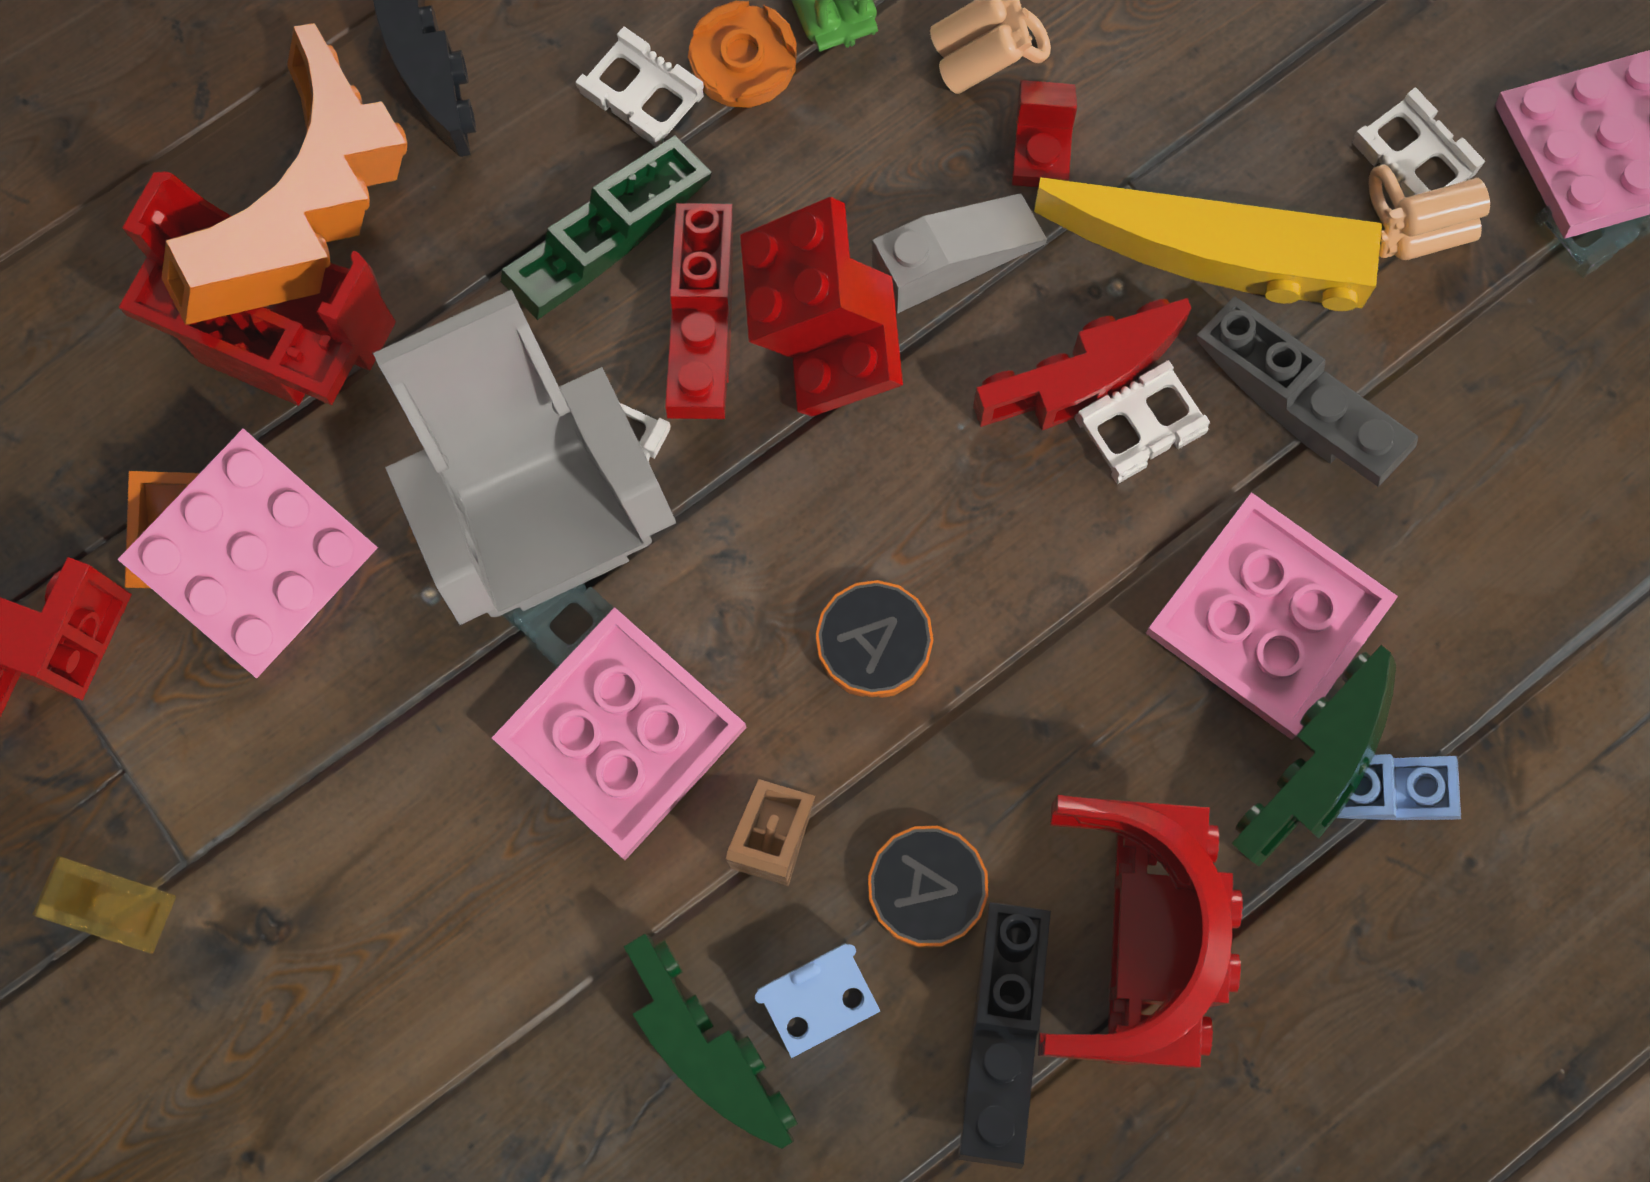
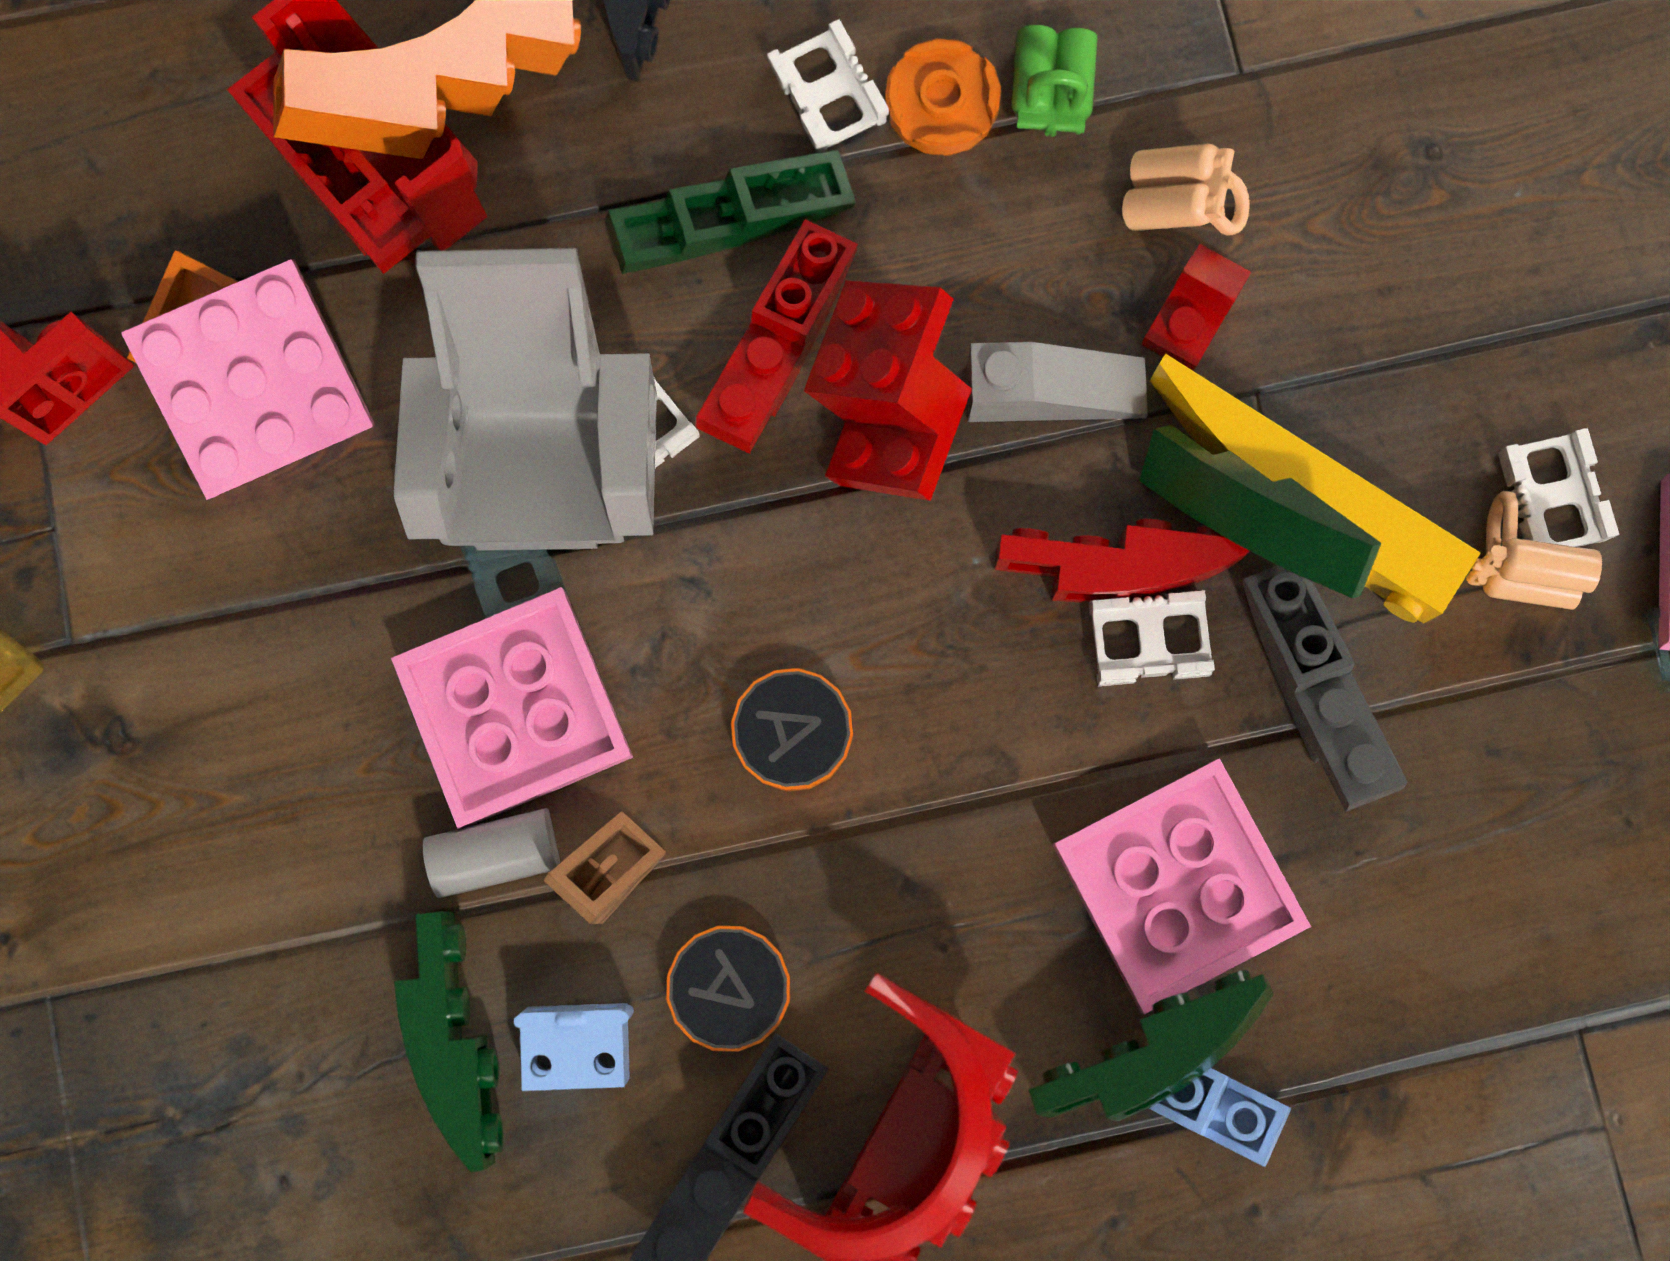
camera: 25 degrees right, 5 degrees up
(662, 868) = (490, 853): none -> light grey brick
(1184, 271) = (1261, 515): none -> dark green slope

